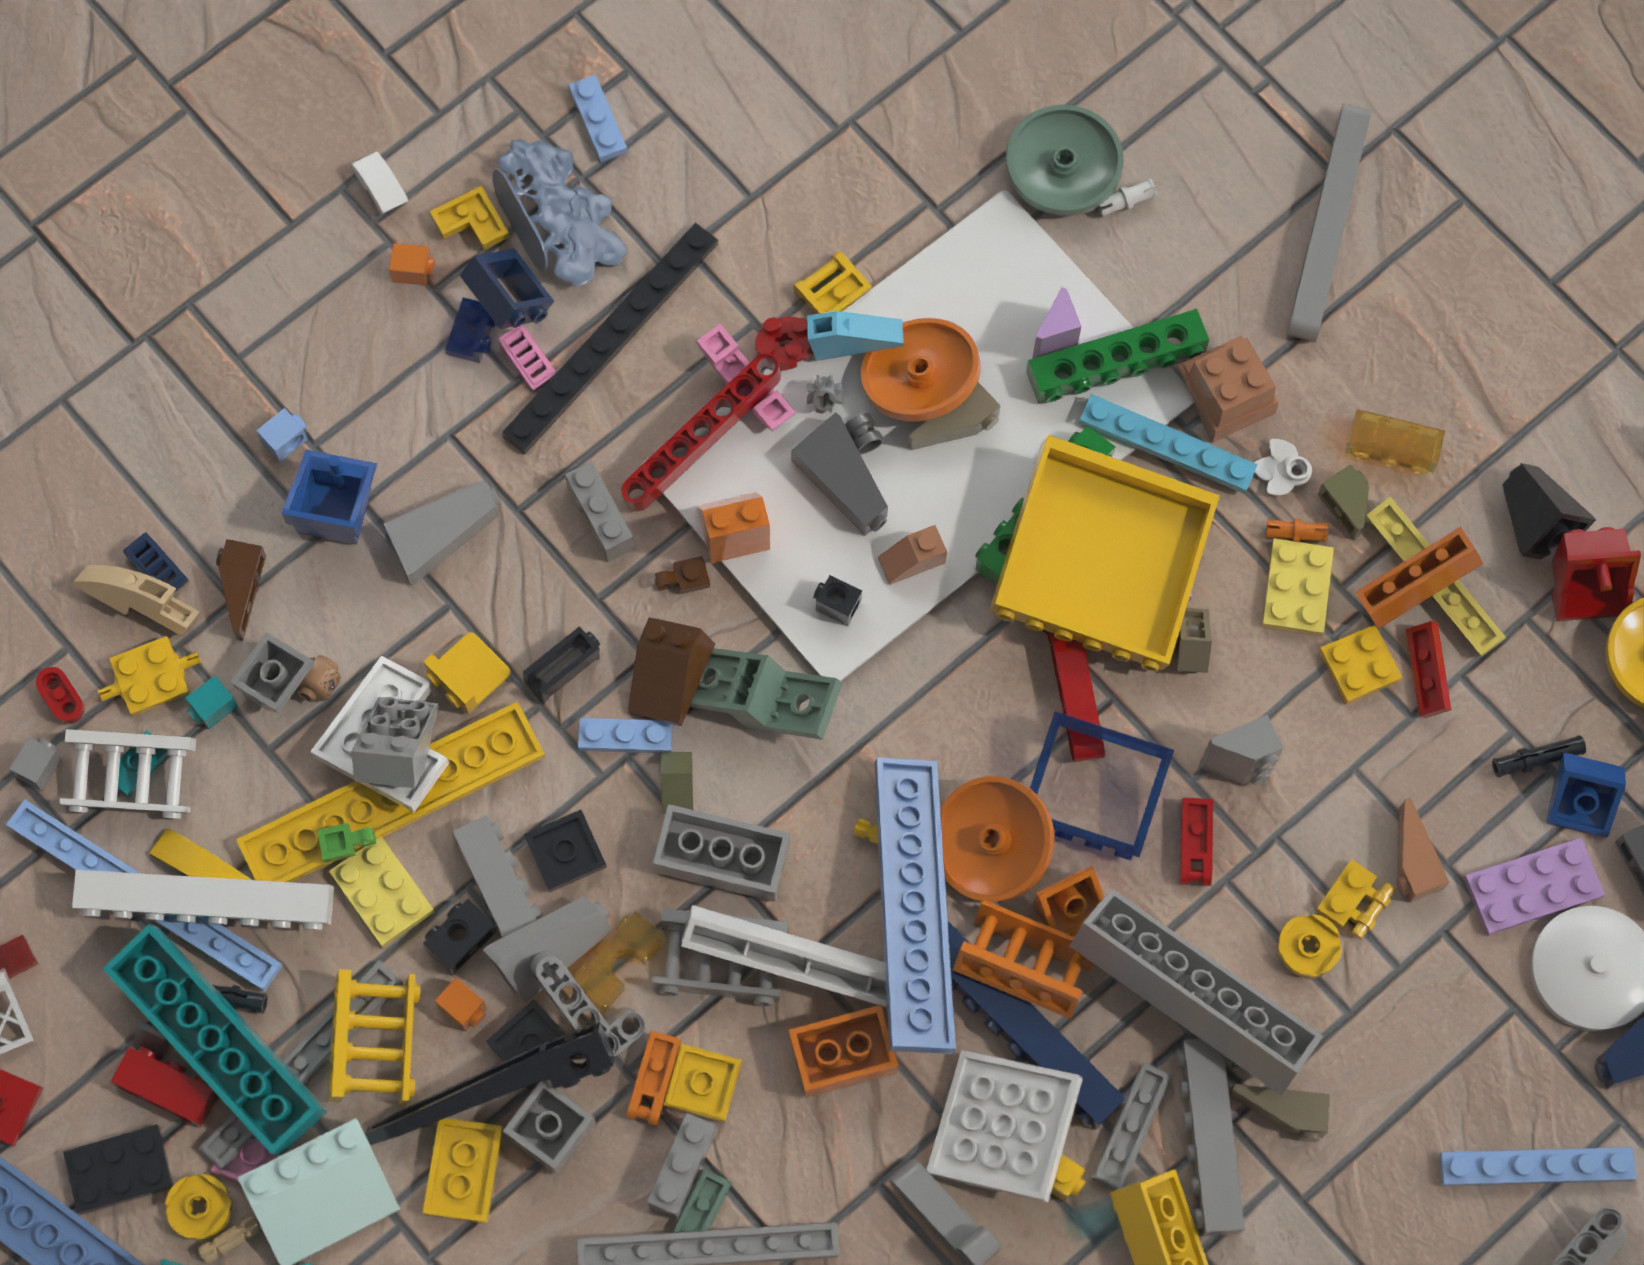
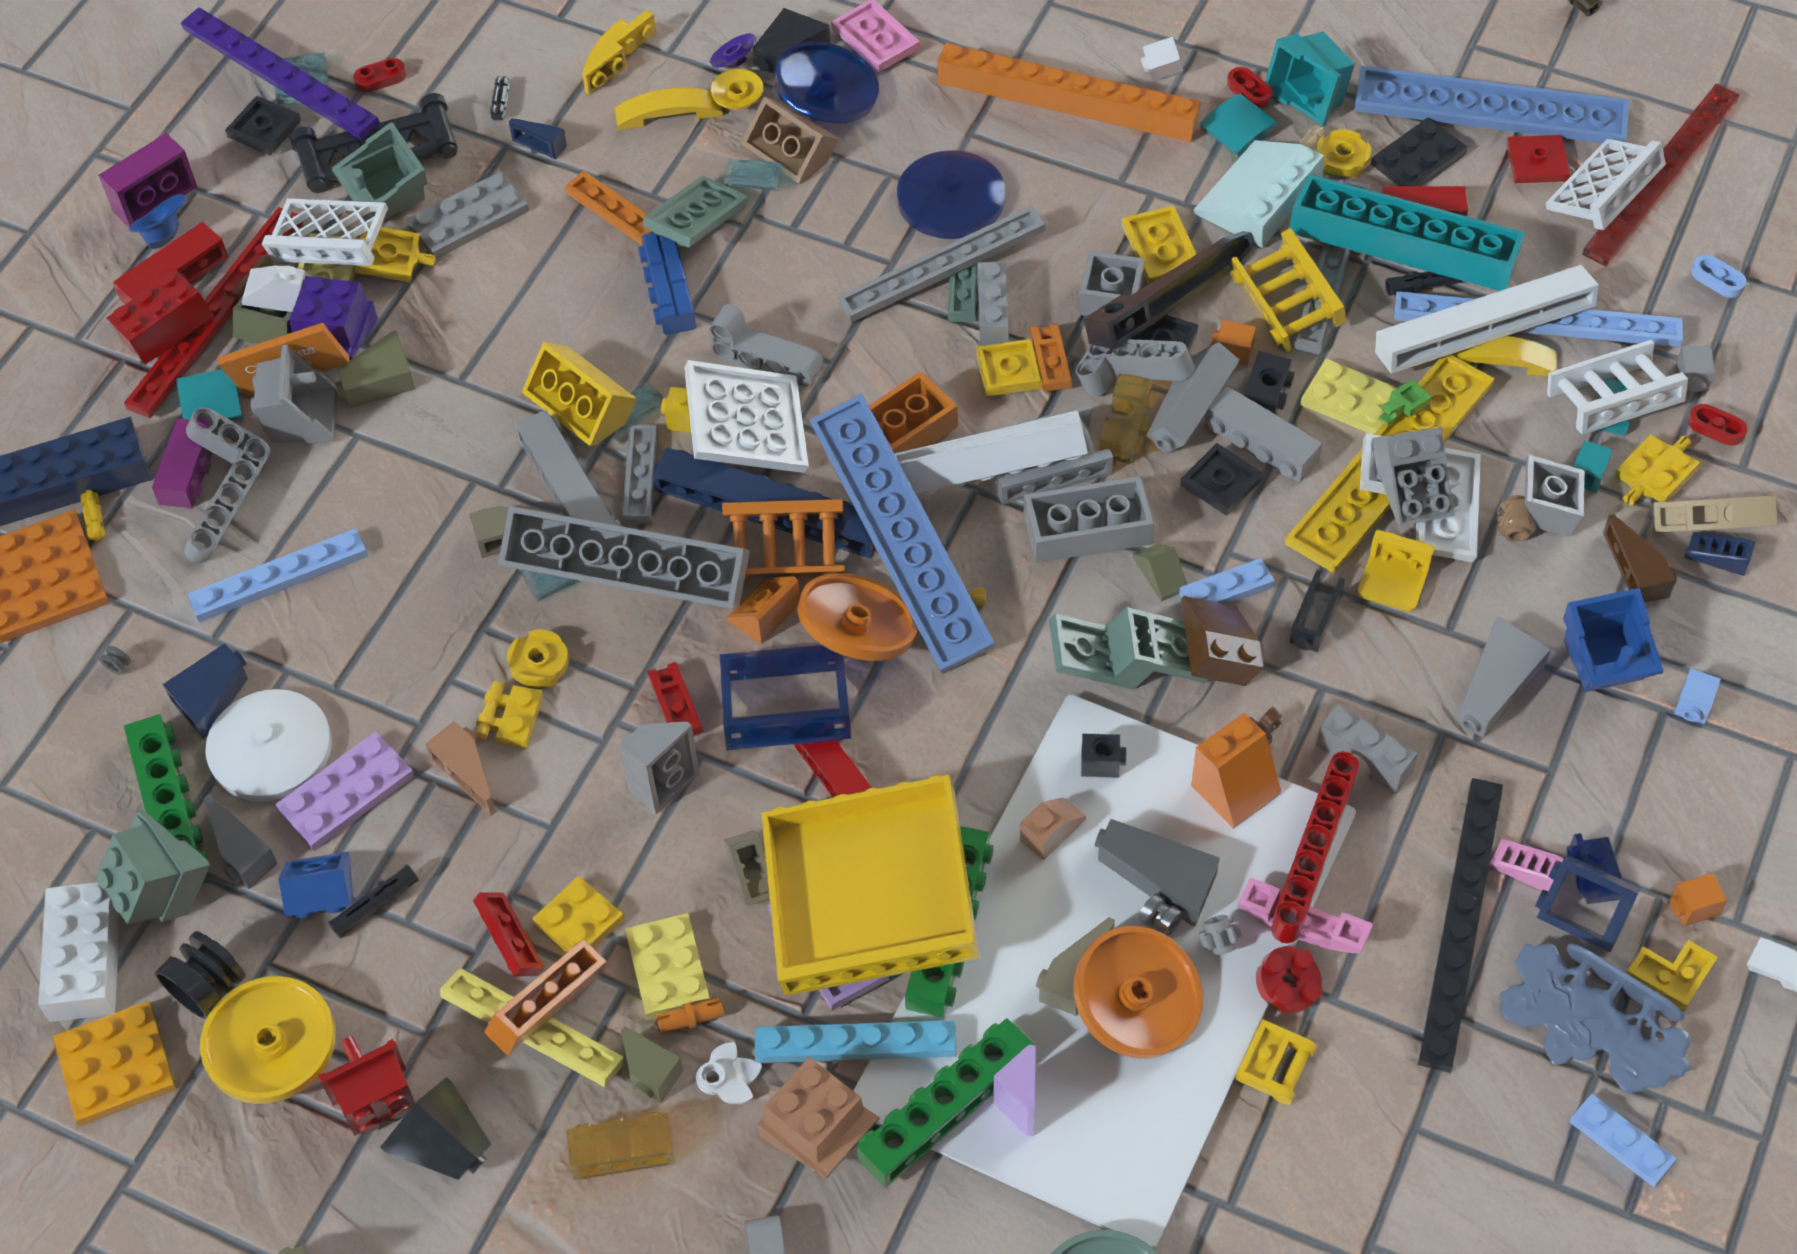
camera: 160 degrees right, 15 degrees down
(849, 333) = (1224, 997): medium azure slope -> none

